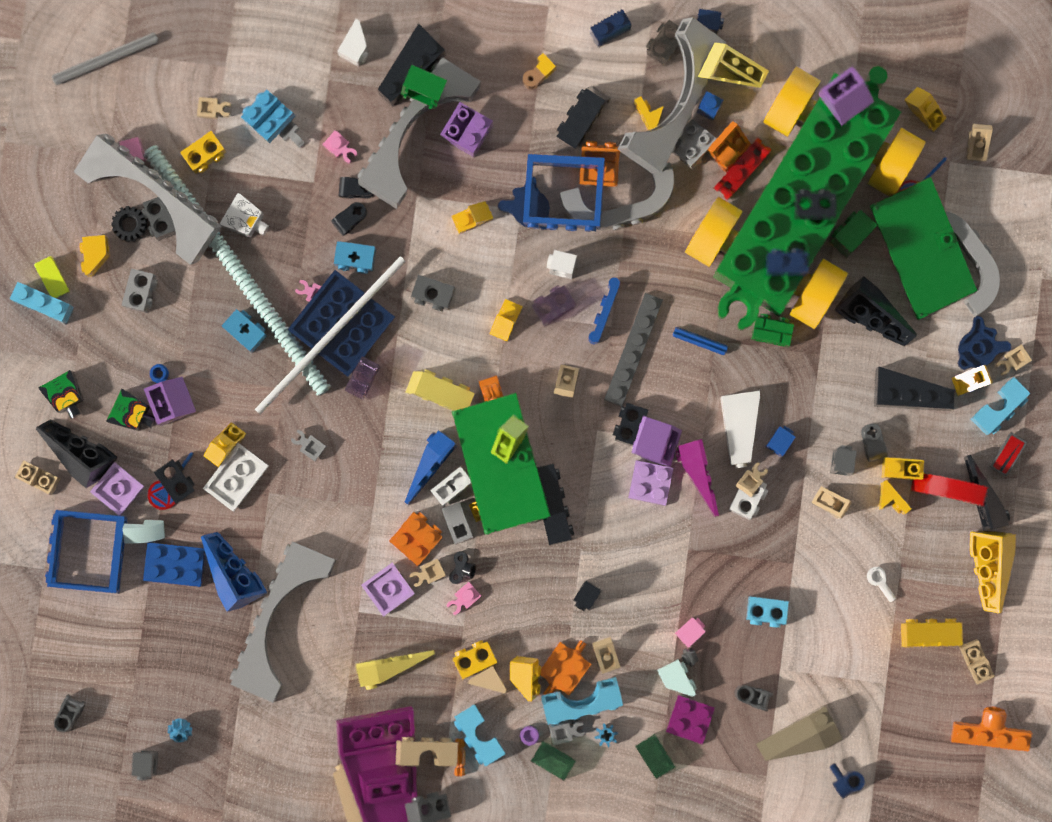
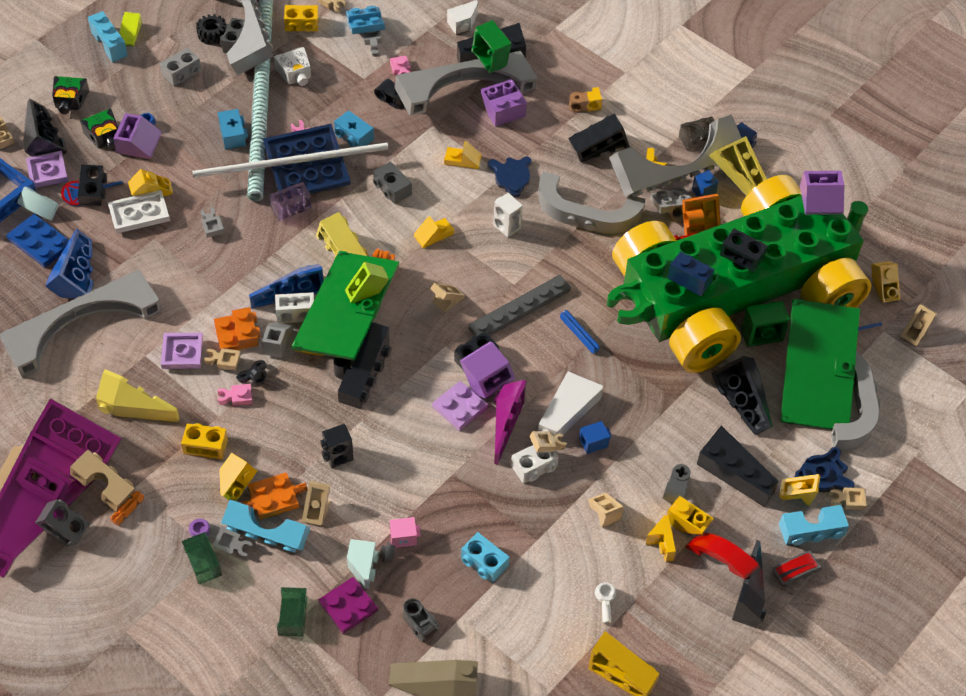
camera: 25 degrees right, 30 degrees down
(95, 253) = (171, 31): yellow slope -> none
(346, 220) = (369, 107): black piece -> none
(486, 750) = (158, 483): medium azure arch -> none
(488, 679) = (202, 461): tan slope -> none
(557, 309) = (479, 241): clear purple brick -> none
(564, 161) = (556, 148): blue window -> none
(601, 732) = (264, 567): dark azure gear -> none
(607, 303) = (516, 268): blue plate -> none
(610, 28) = (662, 101): dark blue brick -> none
(610, 153) = (588, 175): orange plate -> none
(772, 331) = (646, 356): green brick -> none
(843, 461) = (638, 478): dark grey brick -> none
(993, 561) = (727, 642): yellow wedge -> none

